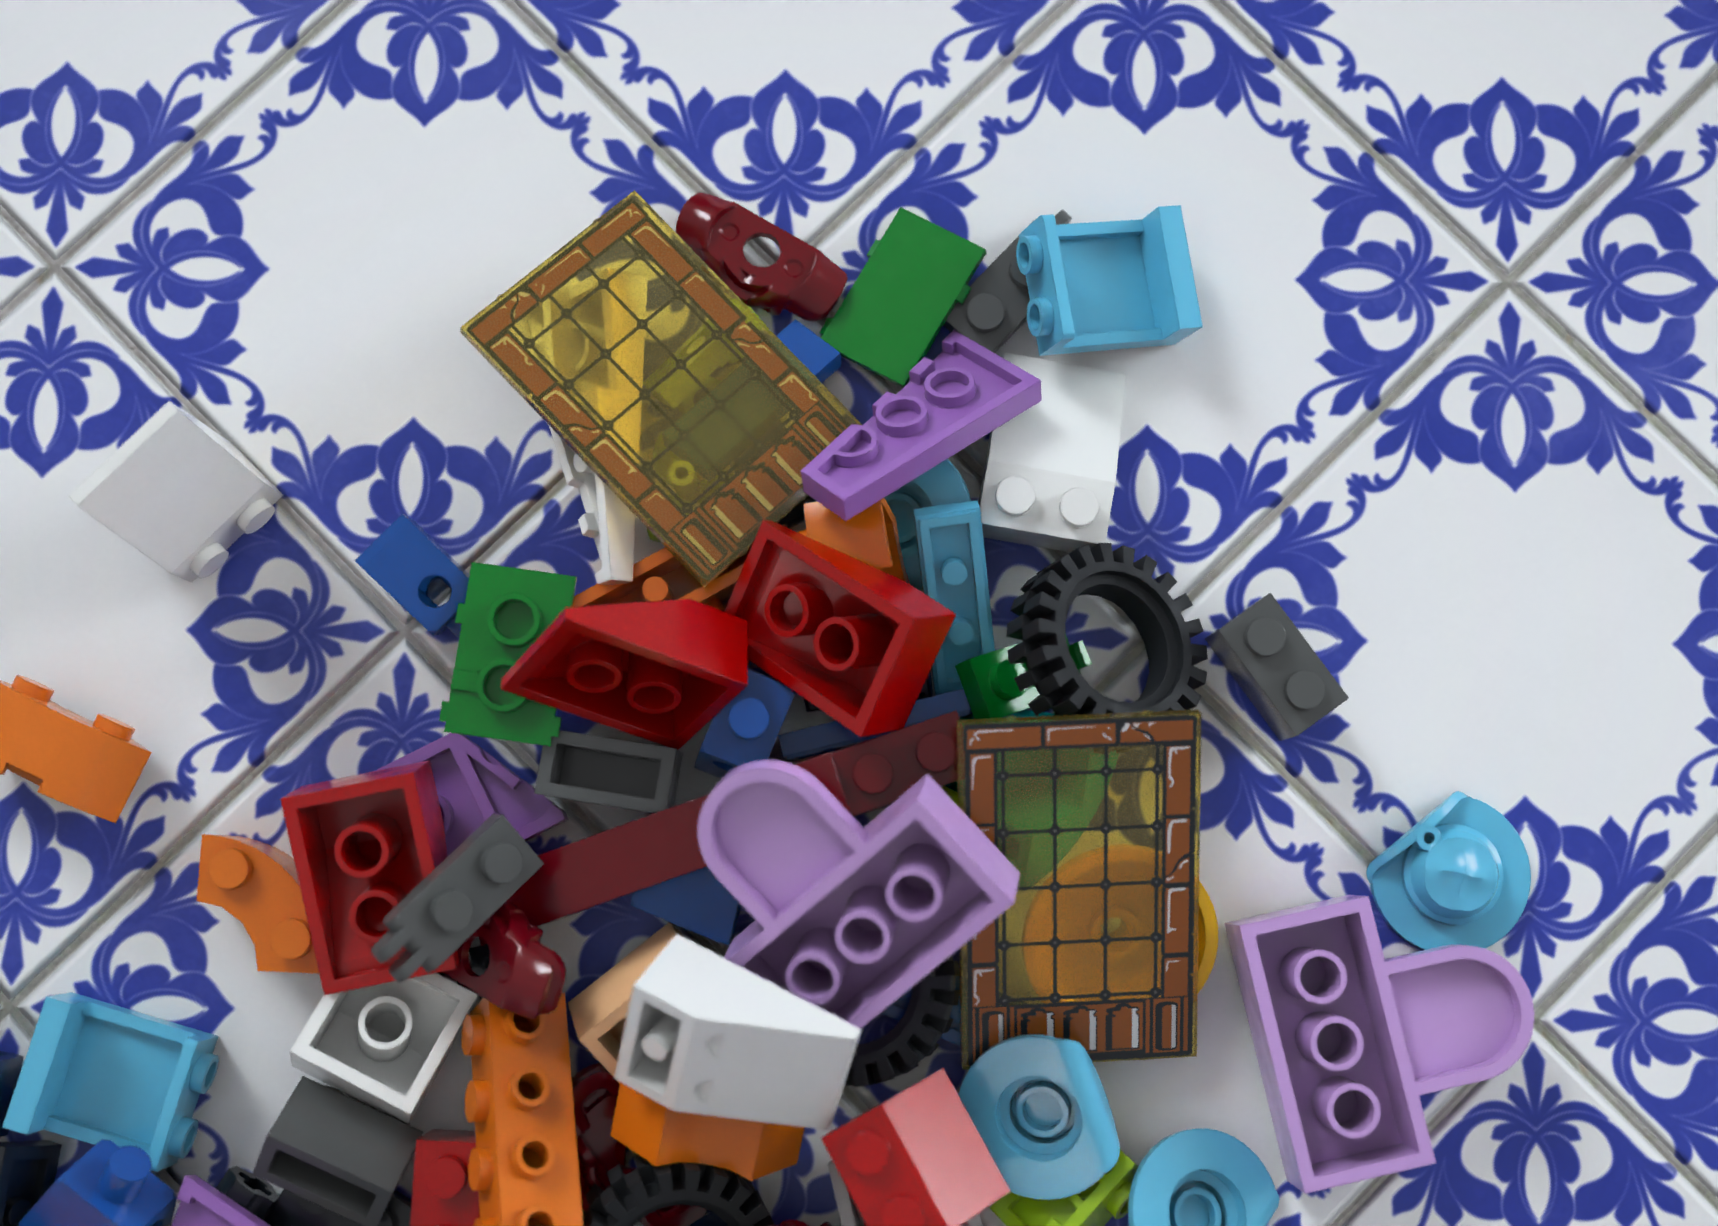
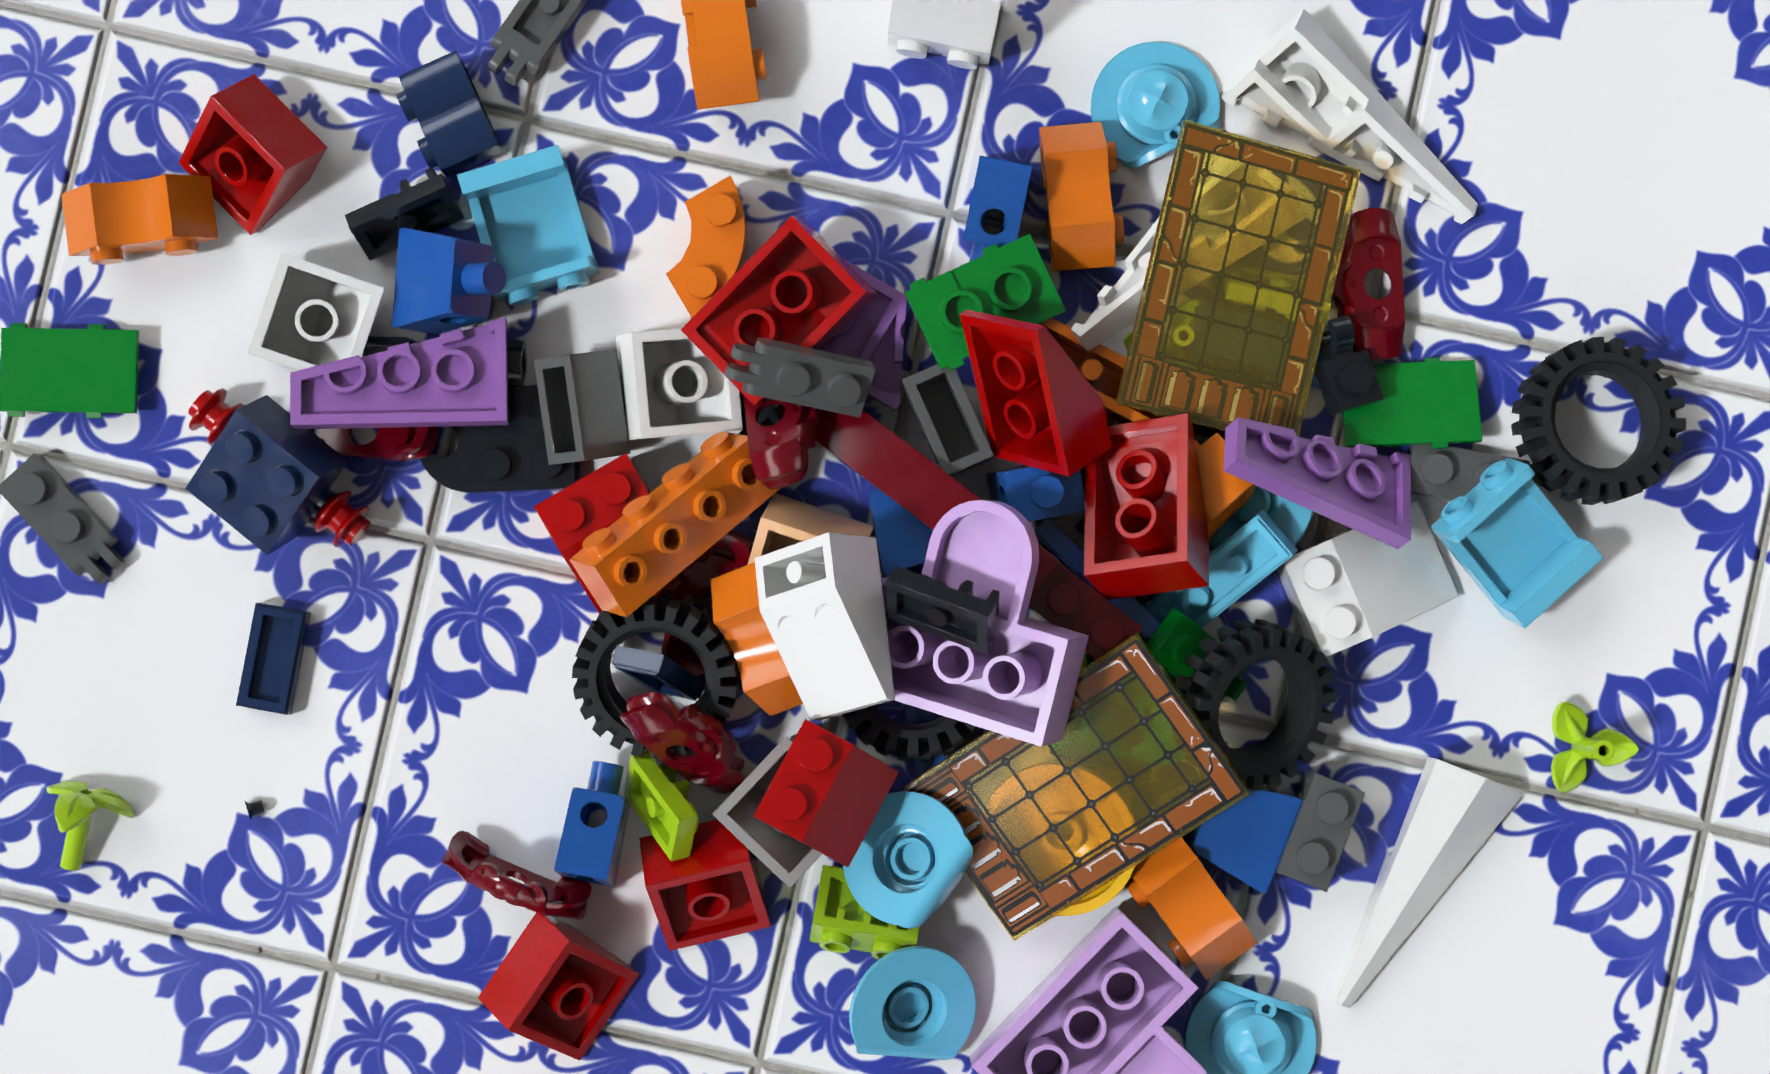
camera: 60 degrees right, 5 degrees up
(420, 361) = (1147, 96): none -> medium azure hat
(474, 490) = (1078, 196): none -> orange brick
(537, 186) = (1319, 93): none -> white wedge
(799, 914) = (942, 610): none -> black plate
(831, 342) = (1345, 376): none -> black plate
(1051, 62) = (1650, 395): none -> black tyre
(1241, 740) = (1248, 836): none -> blue torso
(1278, 847) = (1192, 908): none -> orange brick
(1356, 545) = (1439, 836): none -> white wedge
(1368, 328) = (1605, 747): none -> lime plant

